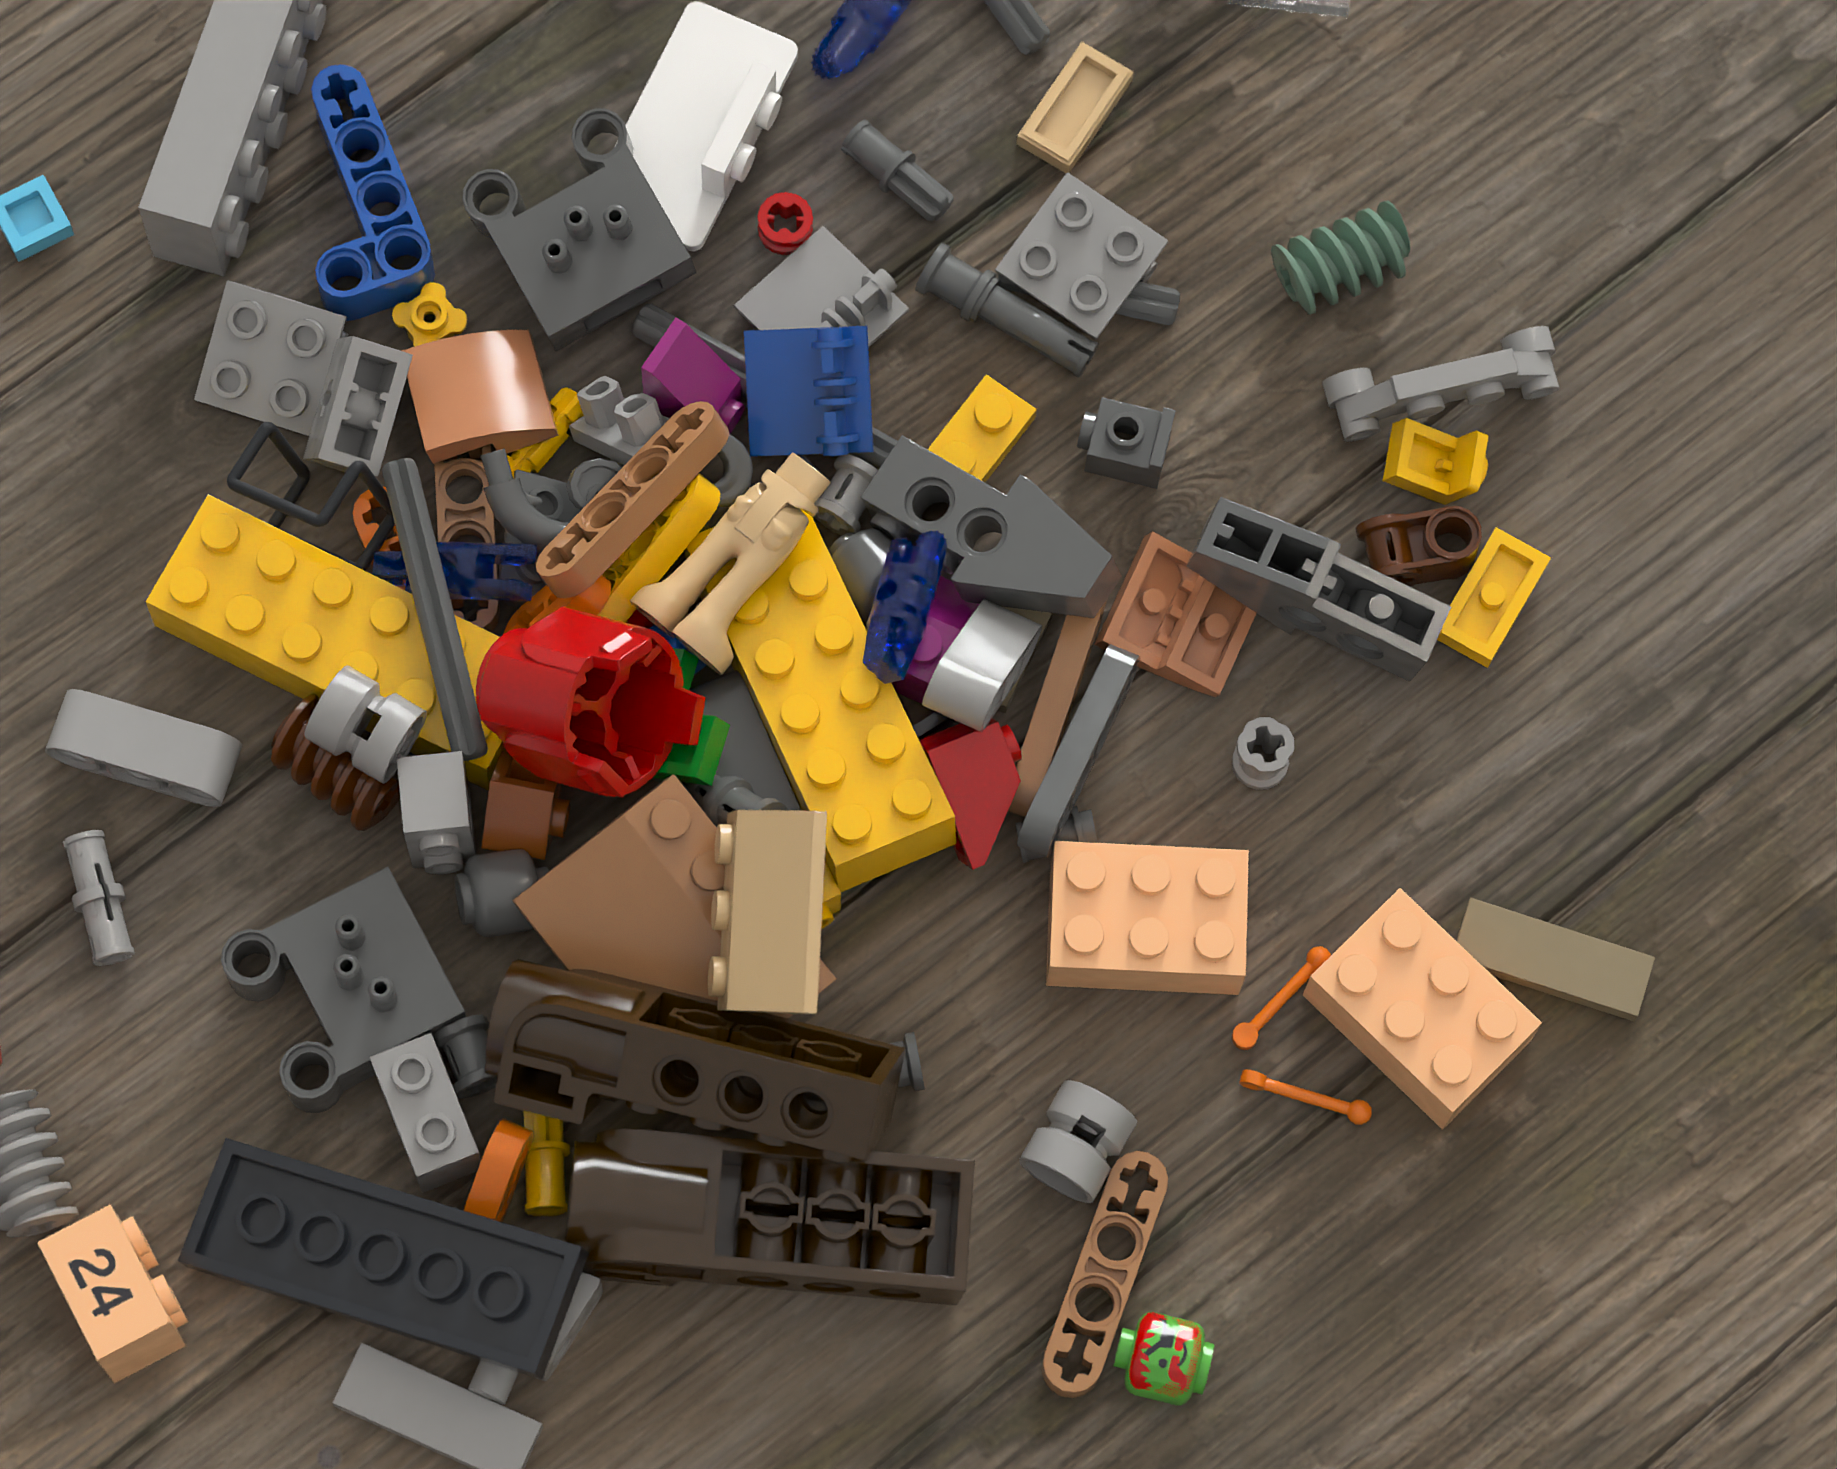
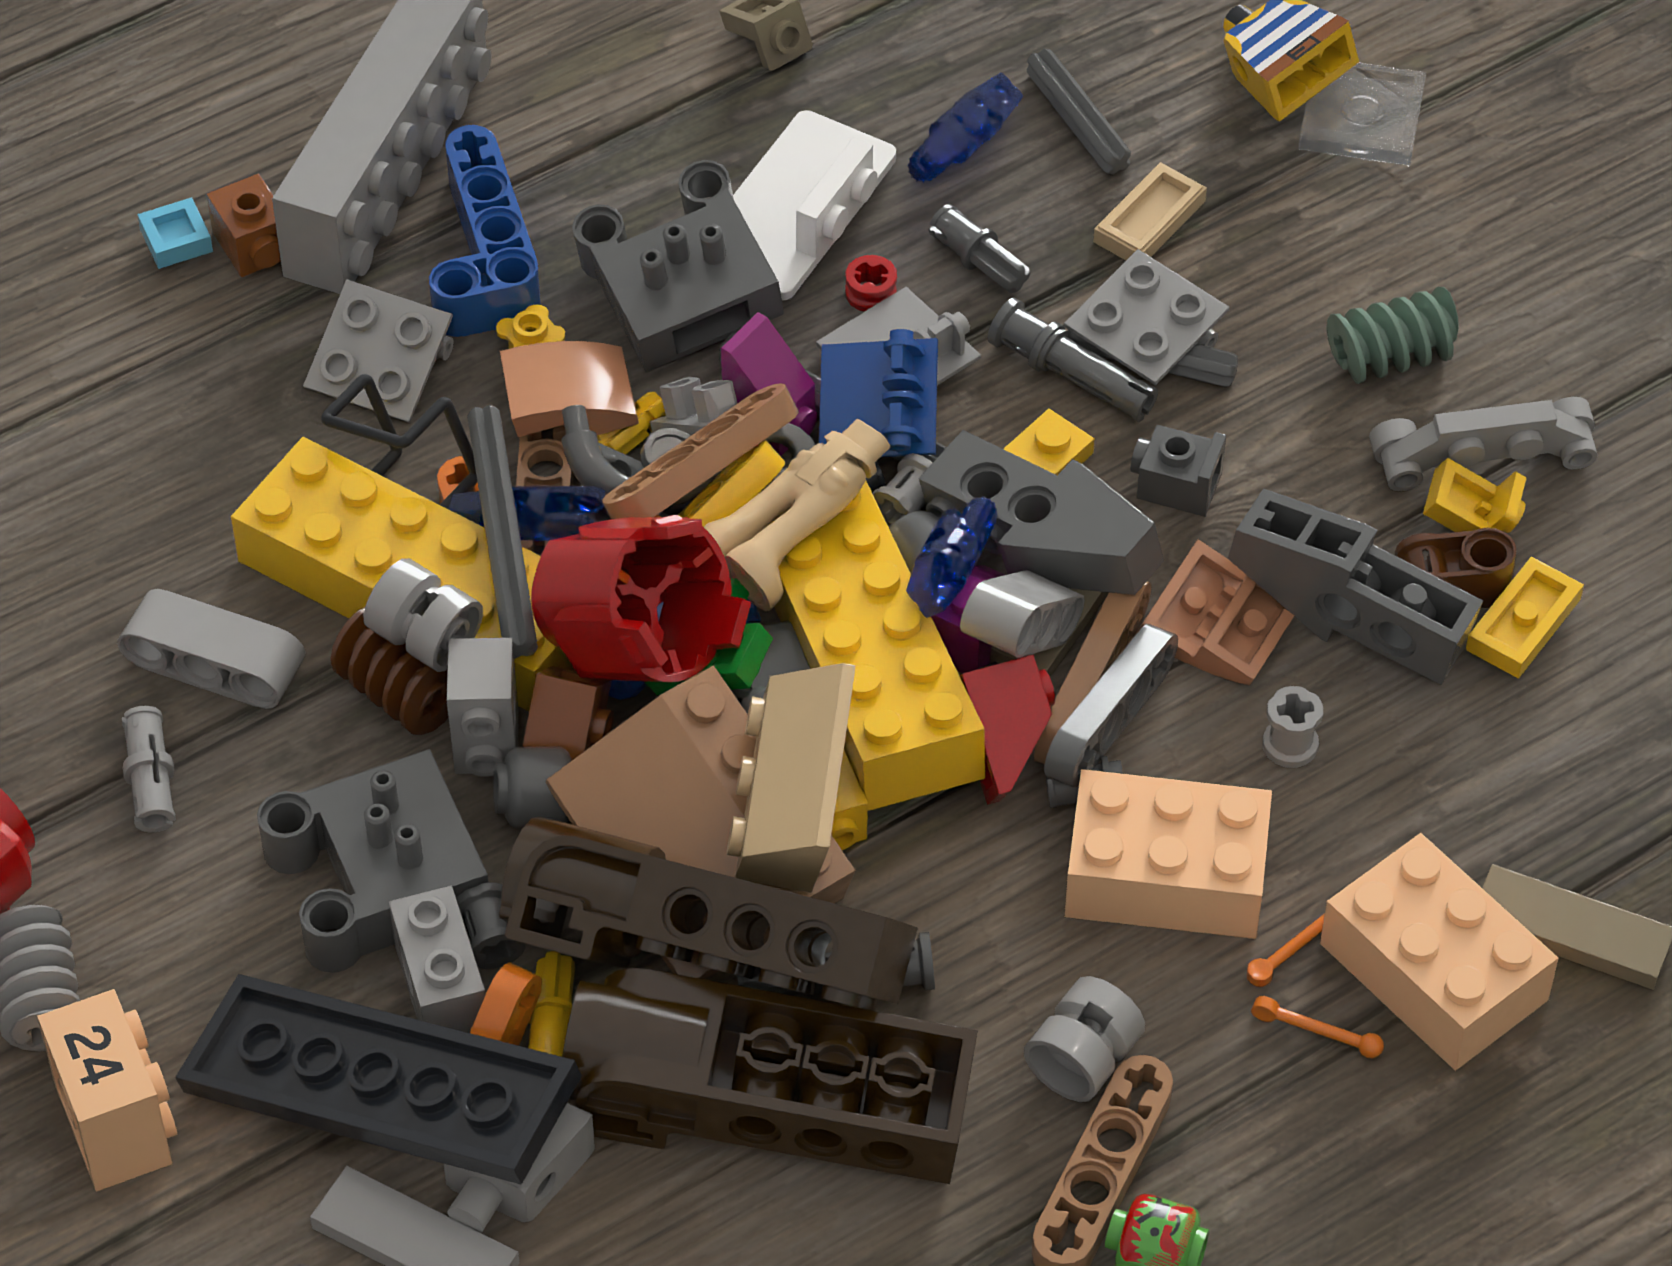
camera: 10 degrees right, 20 degrees down
(107, 204) = (245, 234): none -> dark orange brick
(357, 404) = (455, 371): light grey brick -> none

